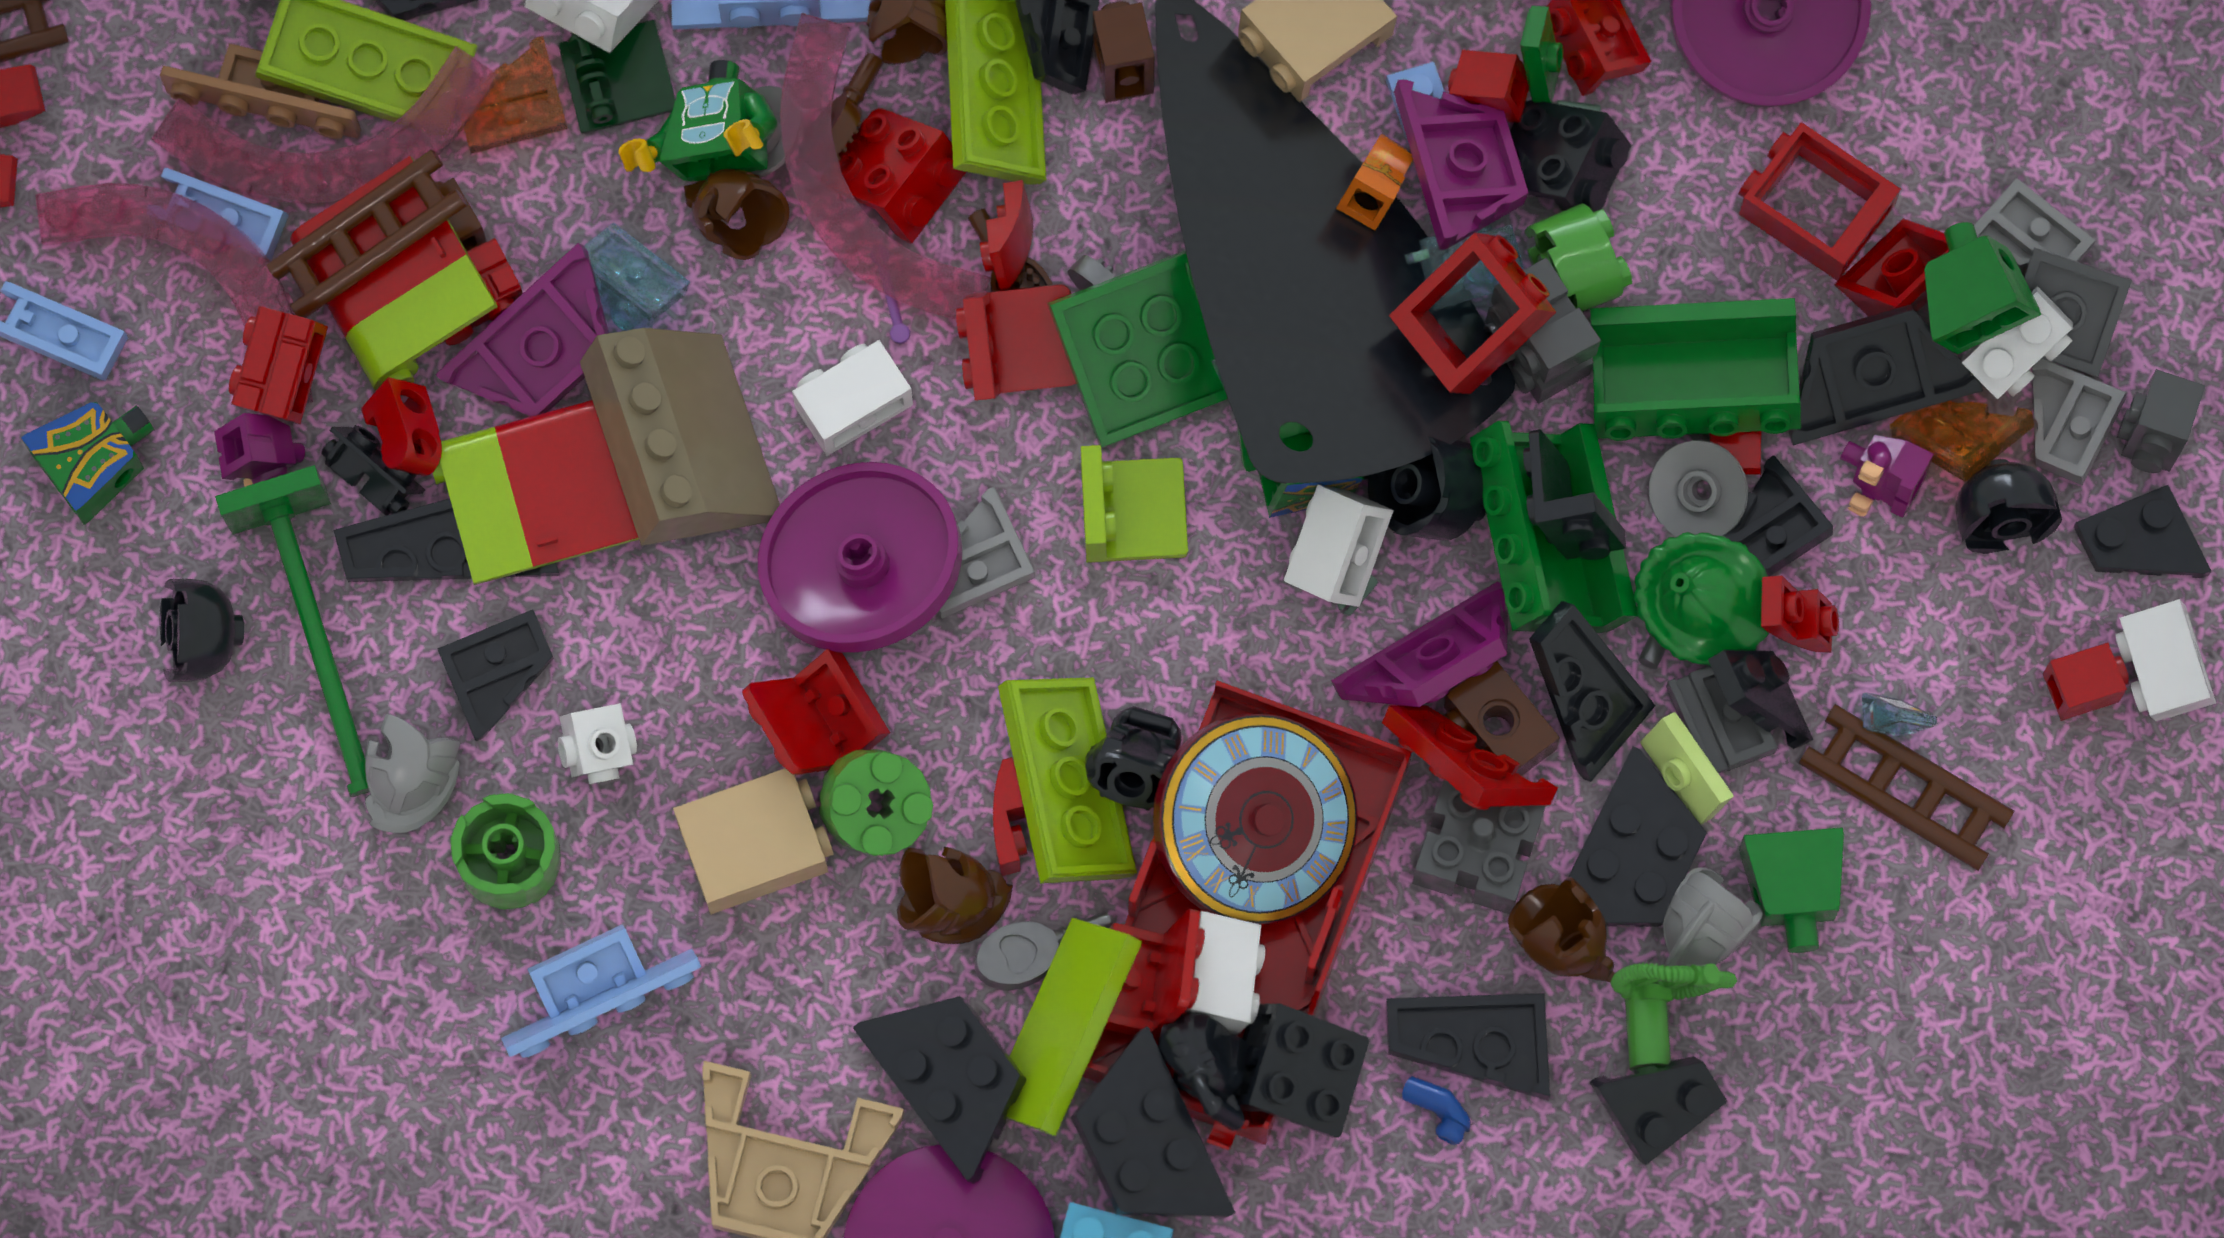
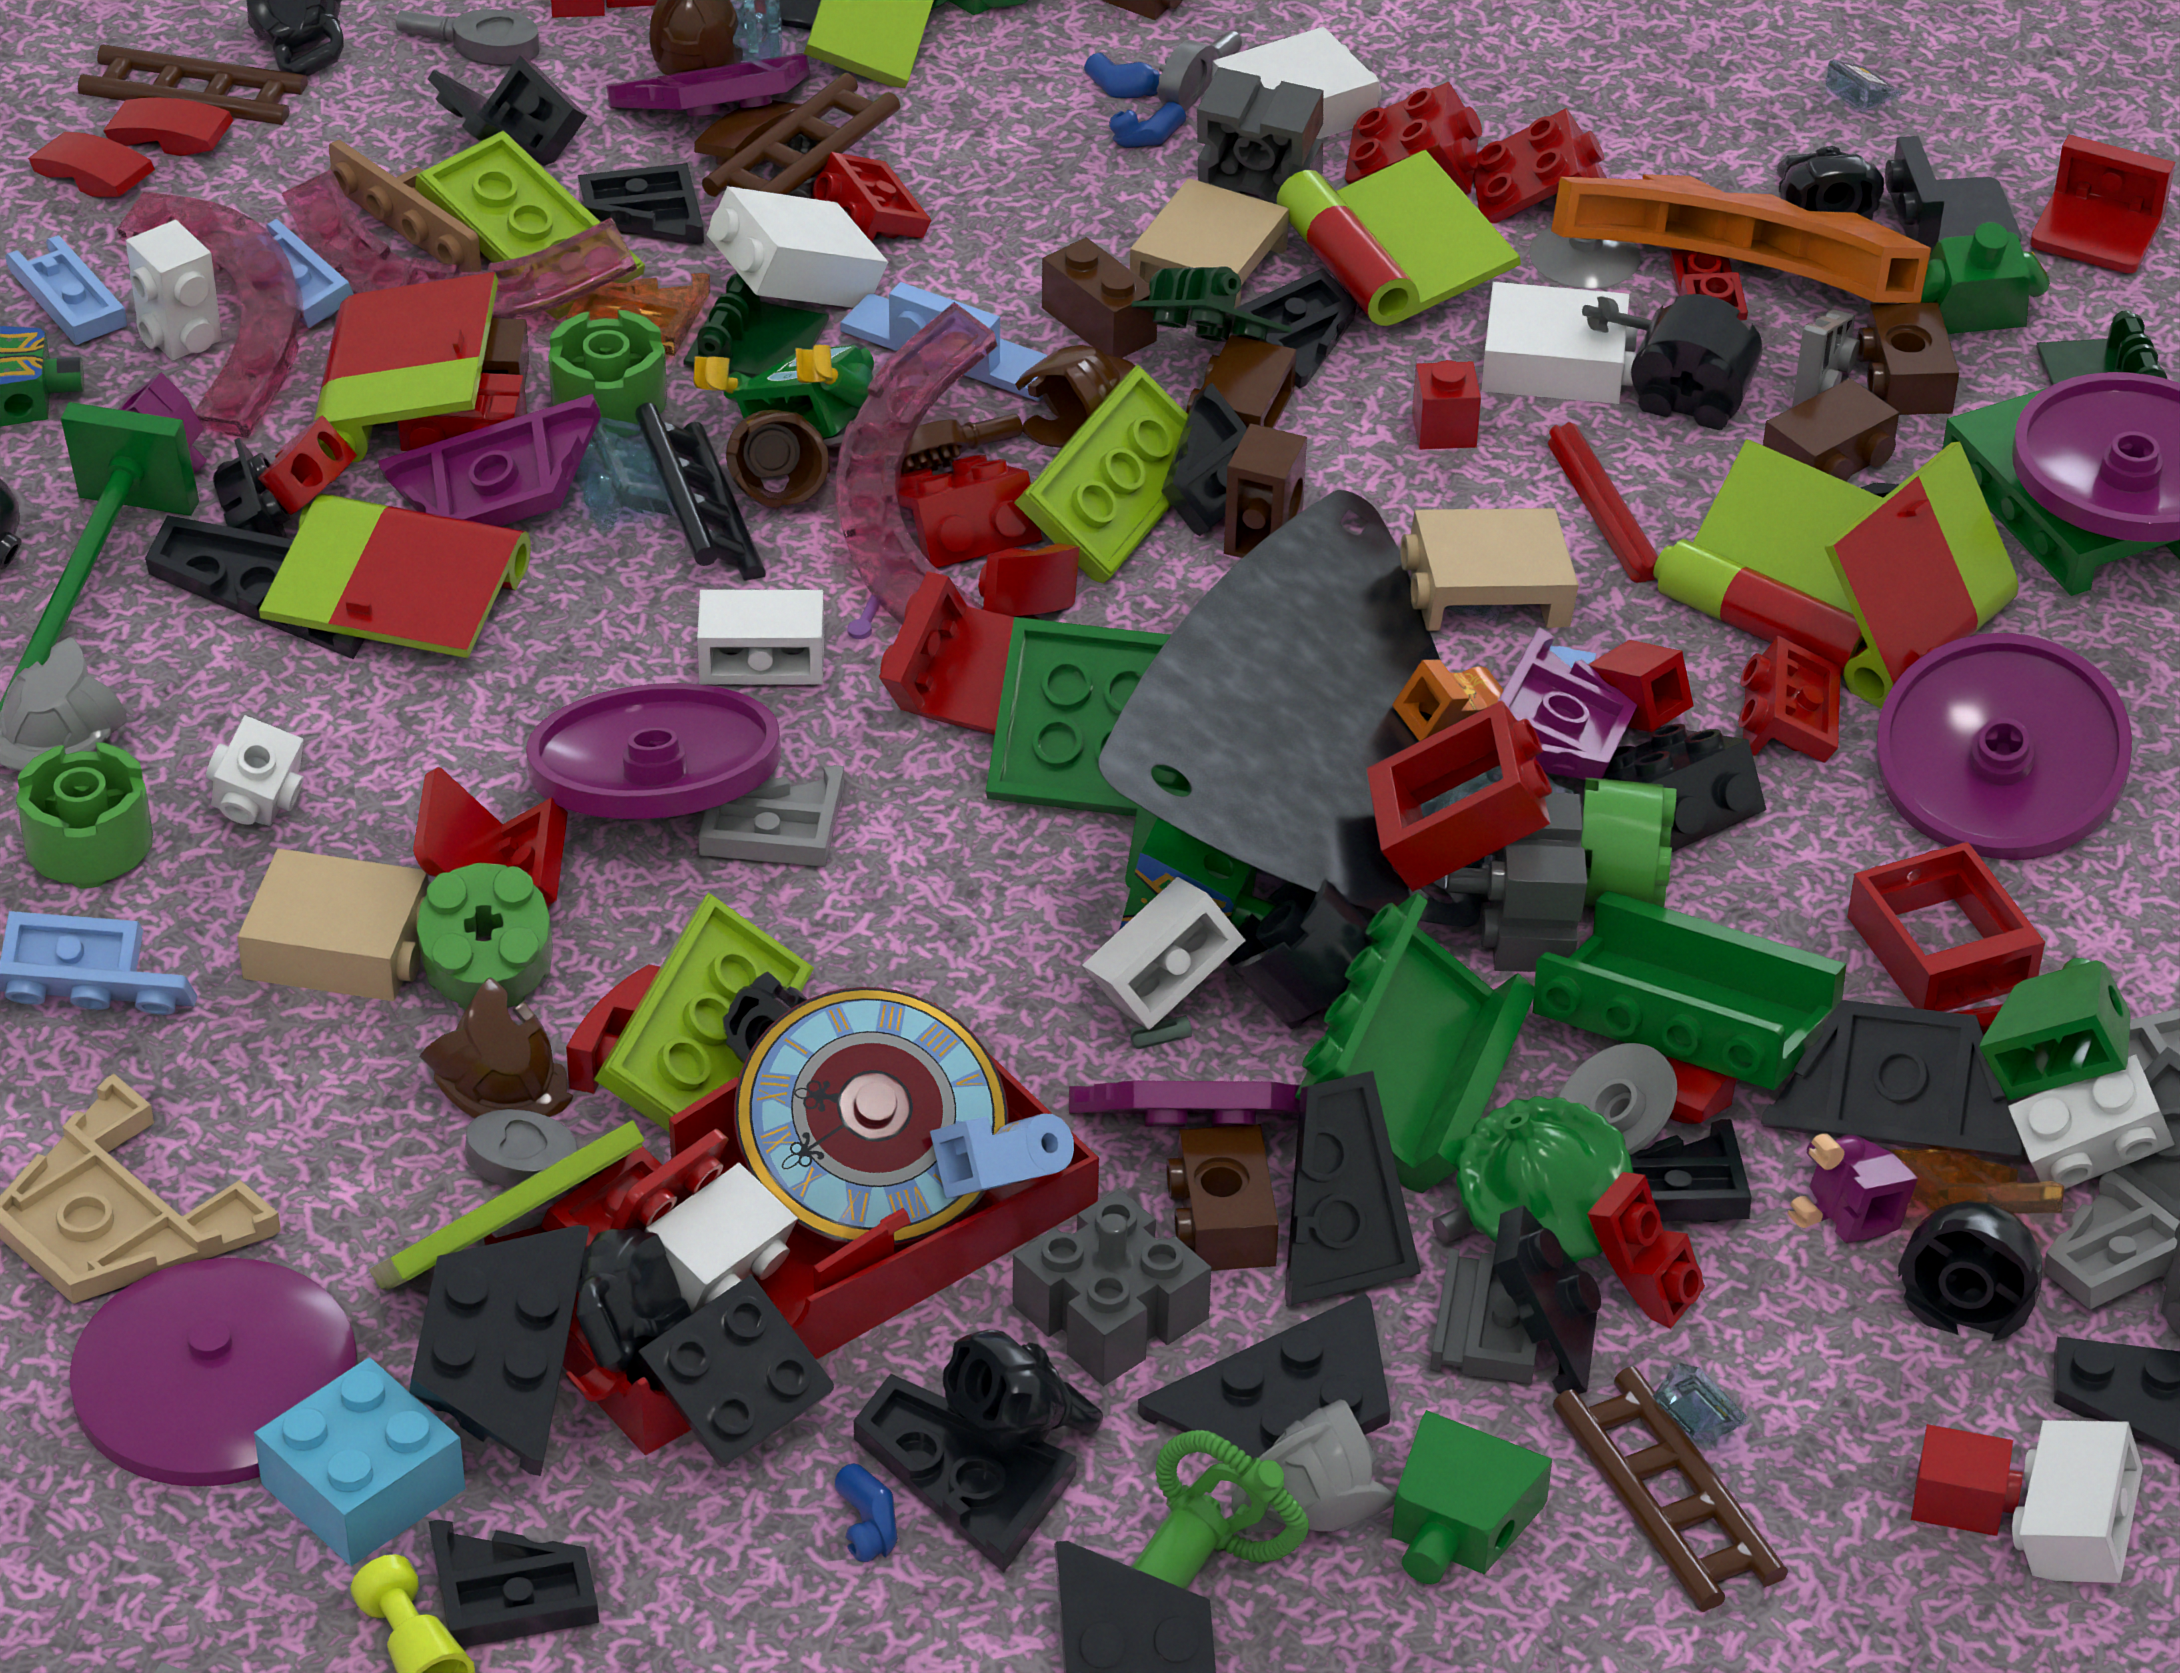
camera: 30 degrees right, 30 degrees down
(164, 305) = (173, 290): none -> white brick
(277, 364) = (233, 362): red brick -> none
(397, 236) = (428, 314): reddish brown bar -> none
(495, 668) = (217, 684): black wing -> none
(525, 187) = (613, 360): none -> bright green brick
(678, 433) = (565, 579): dark tan slope -> none
(692, 248) = (693, 509): none -> black bar
(948, 1074) = (350, 1202): black wing -> none
(1133, 508) = (963, 848): lime bracket -> none
(1364, 802) = (1020, 1151): none -> light blue leg
(1451, 752) = (1150, 1184): red wing -> none
(1484, 977) = (1013, 1391): none -> black piece
(1541, 54) = (1711, 669): green plate -> none
(1563, 931) = (1138, 1395): reddish brown helmet -> none
(1574, 524) = (1439, 1008): black bracket -> none
(1686, 768) = (1410, 1337): yellowish green plate -> none

